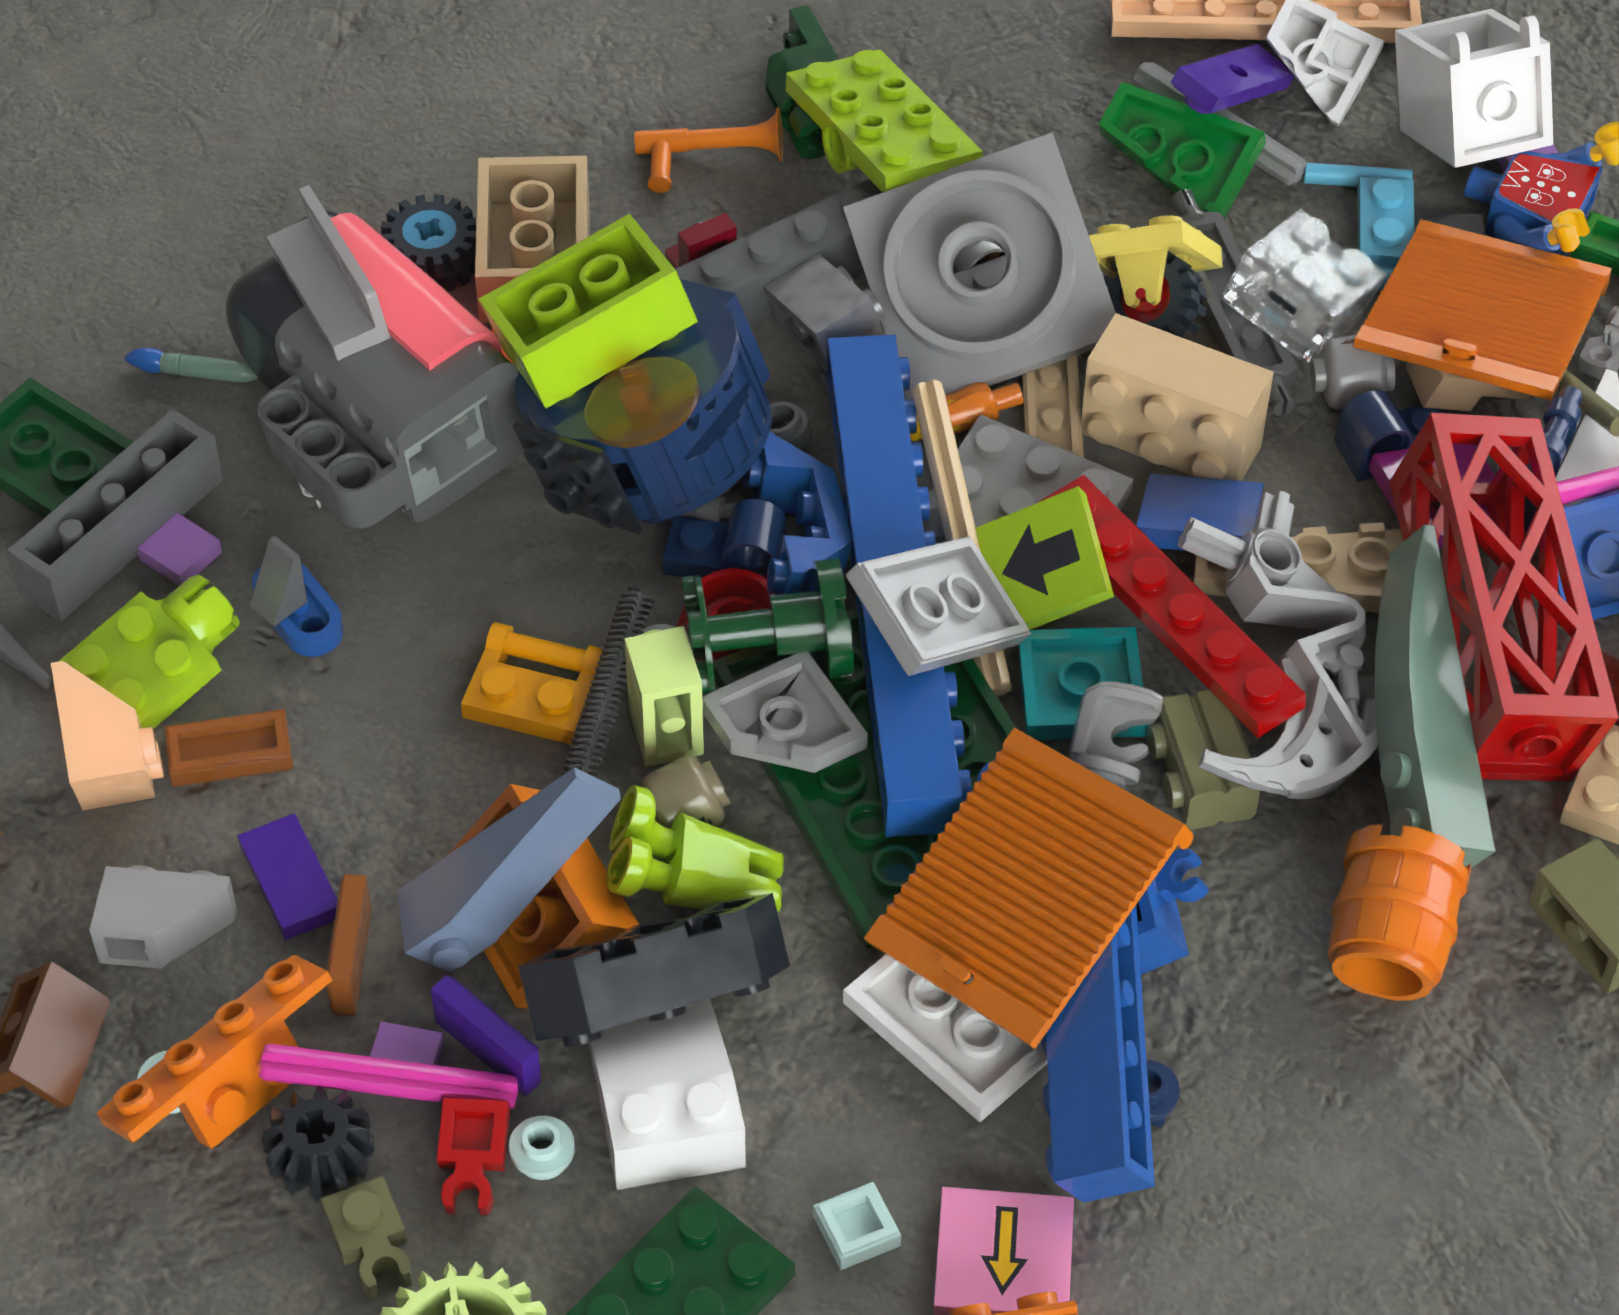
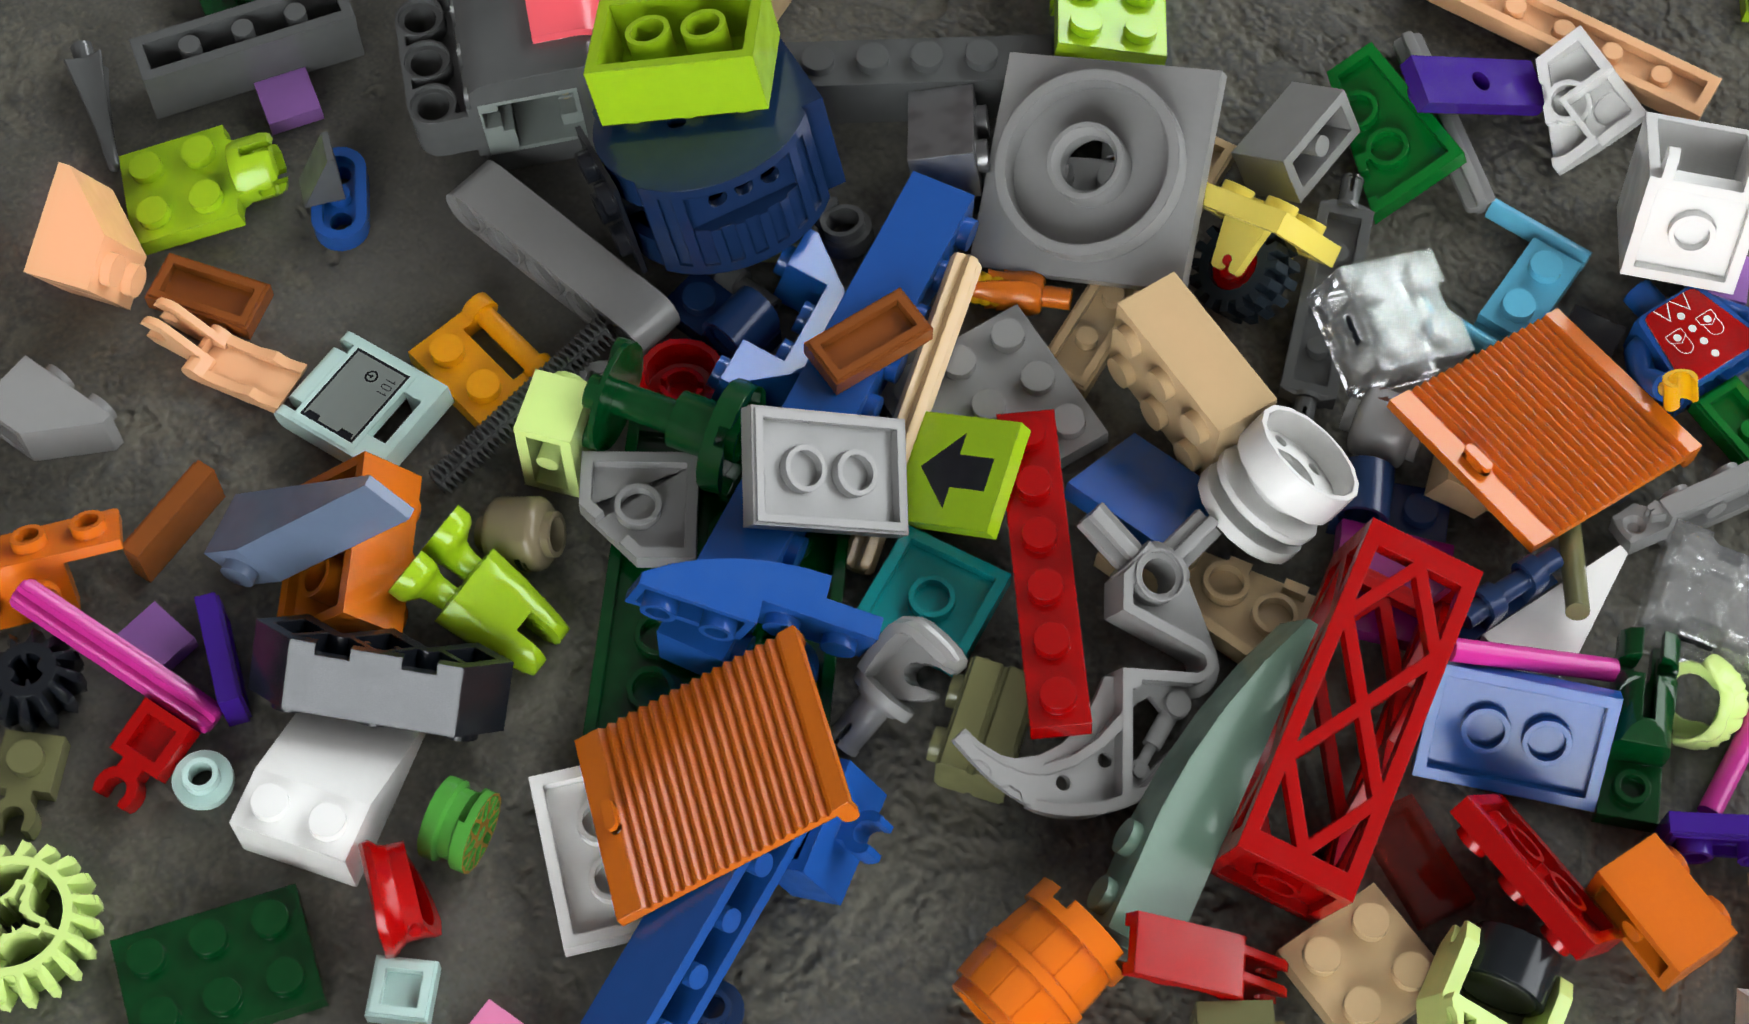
camera: 30 degrees right, 10 degrees up
(269, 793) = (225, 360): none -> light nougat arm
(289, 876) = (176, 431): dark purple tile -> none
(439, 763) = (356, 394): none -> light aqua container
(542, 561) = (561, 256): none -> light grey beam
(642, 402) = (675, 161): clear orange piece -> none
(701, 240) = (886, 23): dark red bracket -> none
(801, 1140) = (398, 897): none -> red hat
(813, 1056) = (458, 824): none -> bright green wheel
(896, 486) = (868, 341): none -> dark orange tile
(956, 722) = (736, 593): none -> blue slope
(1118, 178) = (1296, 141): none -> light grey brick
(1311, 449) = (1278, 484): none -> white wheel
(1518, 832) = (1200, 959): none -> arm

